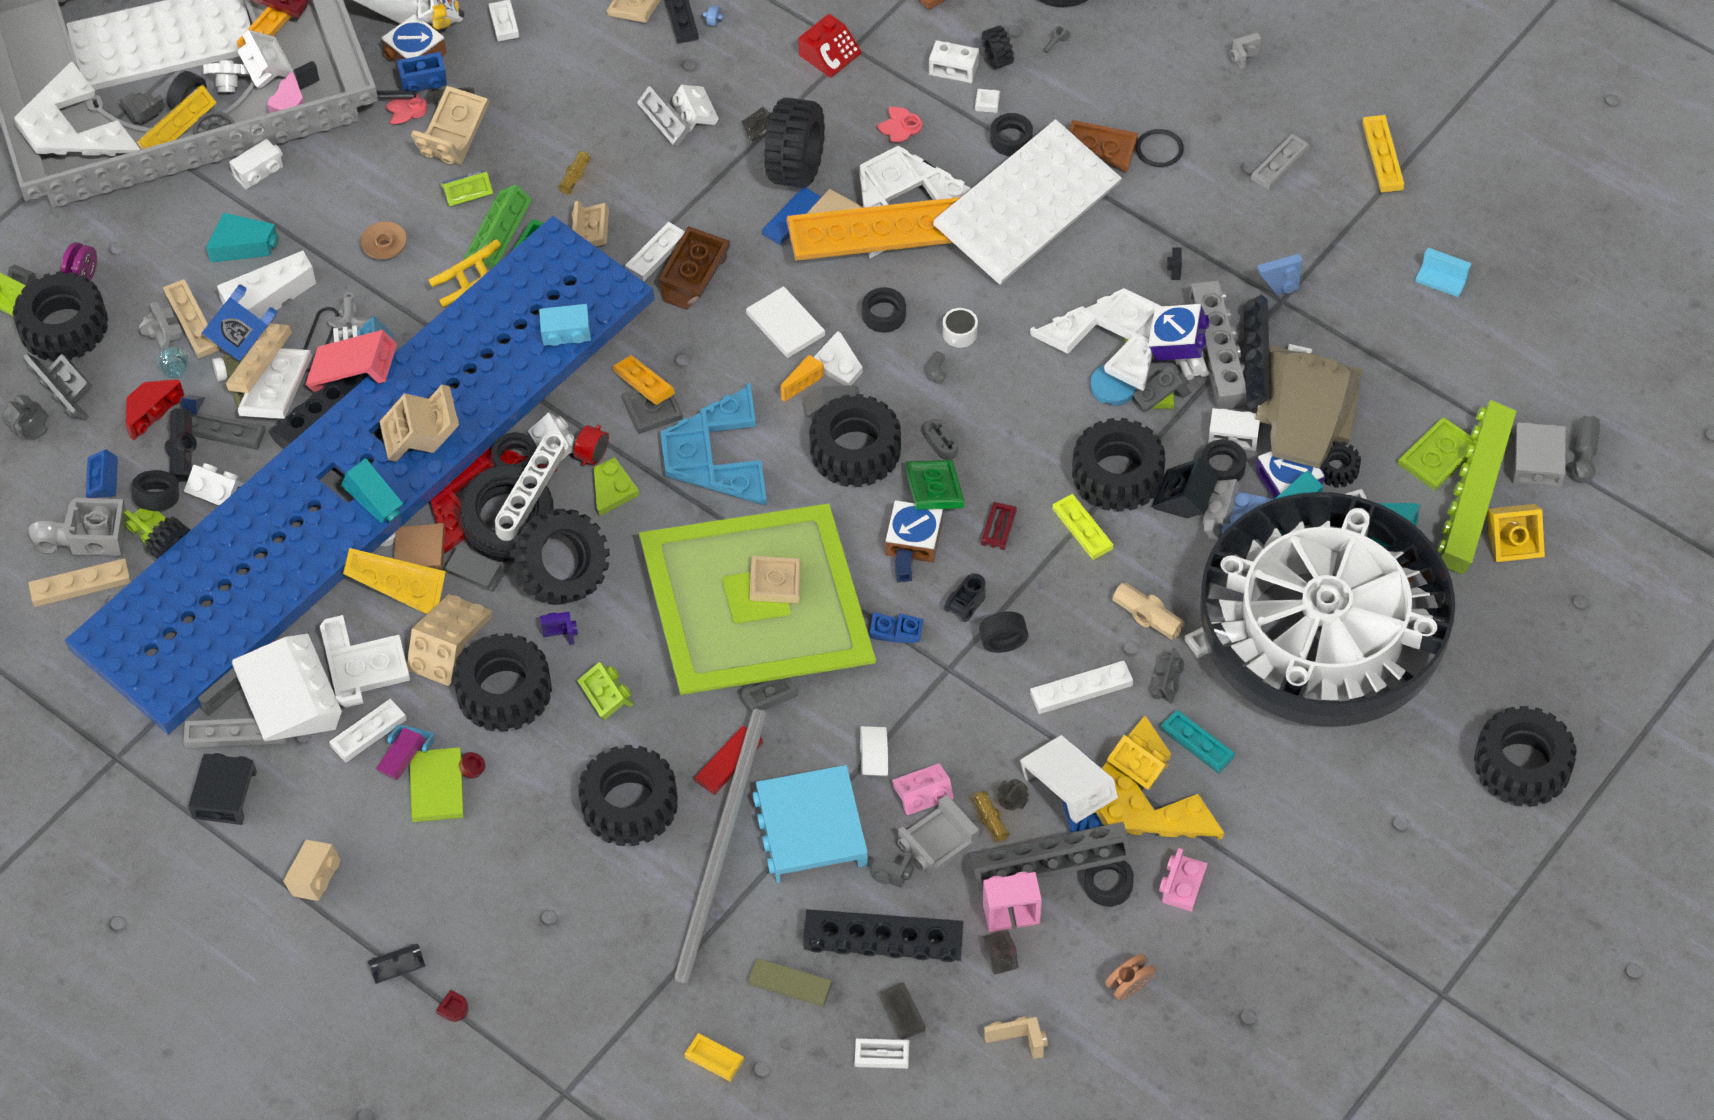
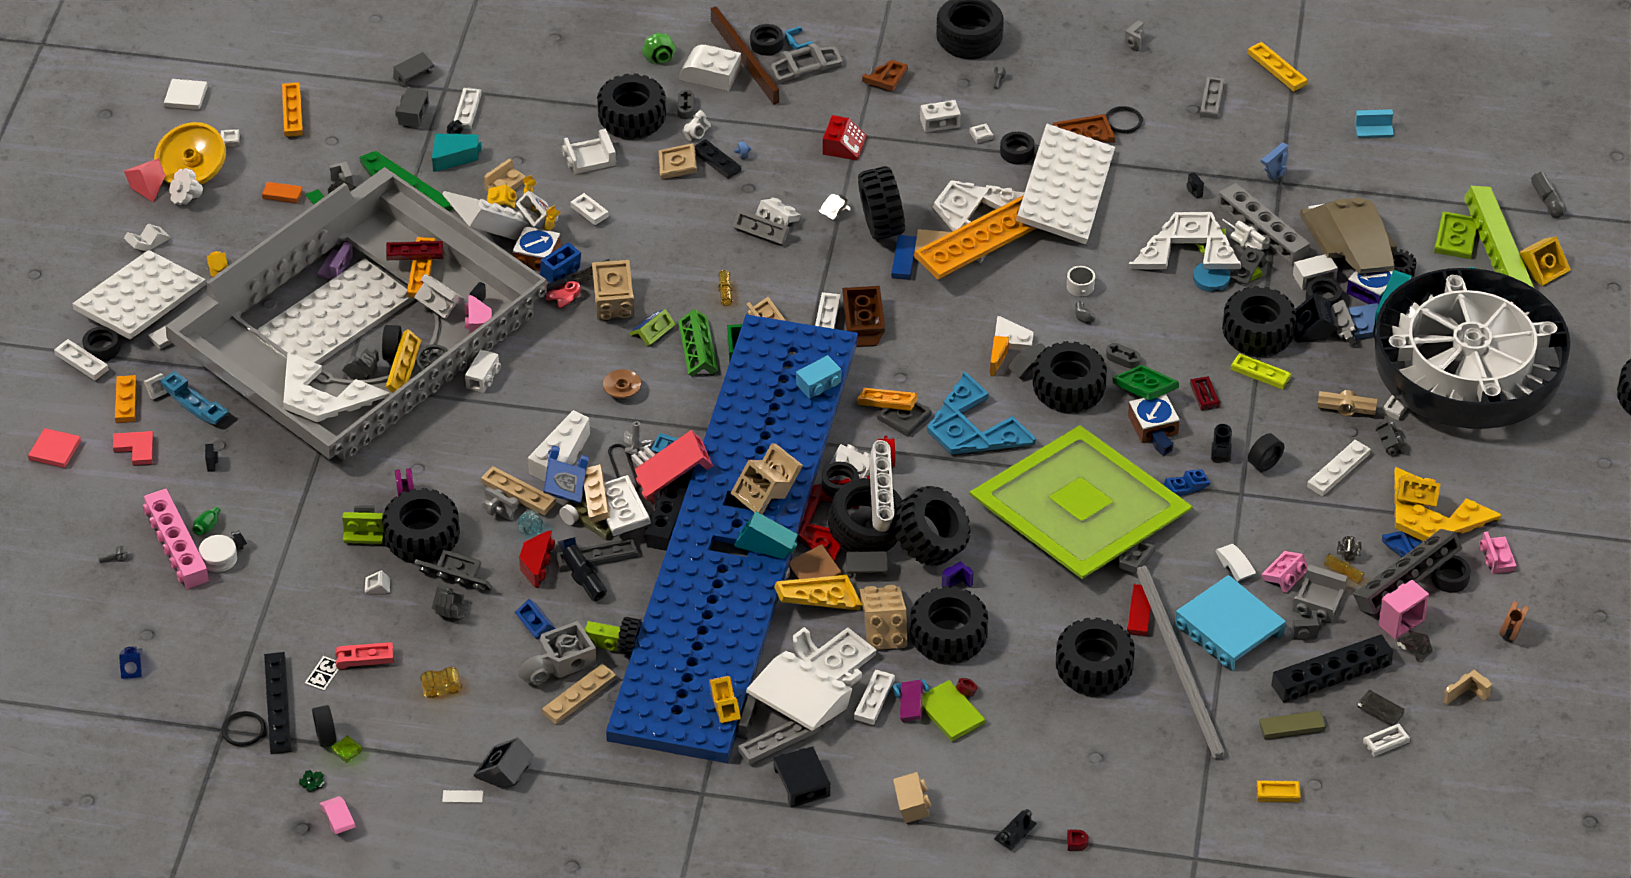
camera: 30 degrees left, 10 degrees down
(155, 480) = (590, 609): black tyre -> none
(201, 658) = (724, 699): none -> yellow slope
(211, 485) = (628, 590): white bracket -> none
(225, 75) = (411, 319): white plant -> none
(241, 239) = (513, 423): teal slope -> none
(457, 271) = (699, 381): yellow piece -> none
(605, 689) = (1021, 602): lime bracket -> none
(612, 486) = (917, 473): lime wing -> none
(775, 579) = (1086, 483): tan tile -> none
(785, 322) = (955, 325): white tile -> none
(884, 295) = (1018, 300): black tyre -> none
(900, 125) = (933, 170): coral plate -> none
(997, 47) = (966, 94): black tyre -> none
(1071, 777) = (1383, 515): white panel -> none
(1178, 332) = (1239, 221): piece -> none
(1197, 741) = (1439, 468): teal tile -> none
(1257, 352) = (1295, 216): black plate -> none
(1539, 454) = (1524, 208): light grey panel -> none

